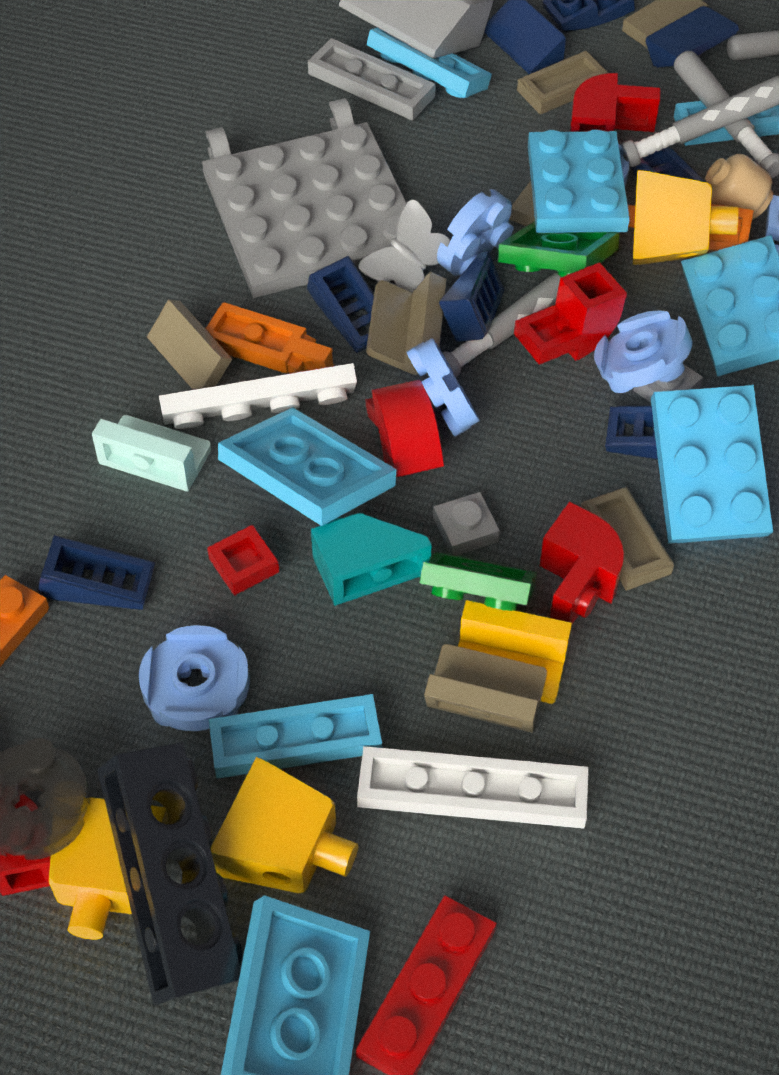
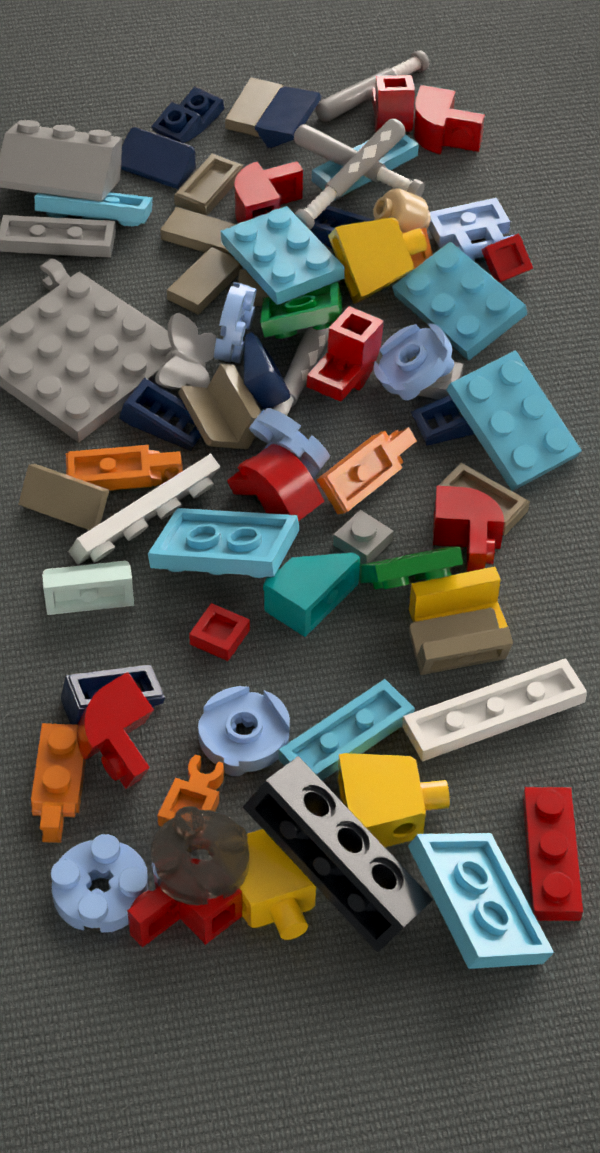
camera: 30 degrees left, 5 degrees down
(52, 601) = (105, 728): none -> red brick
(89, 731) = (197, 792): none -> orange plate
(504, 172) = (204, 280): none -> dark tan tile
(511, 123) = (194, 230): none -> dark tan tile
(515, 449) = (365, 469): none -> hinge

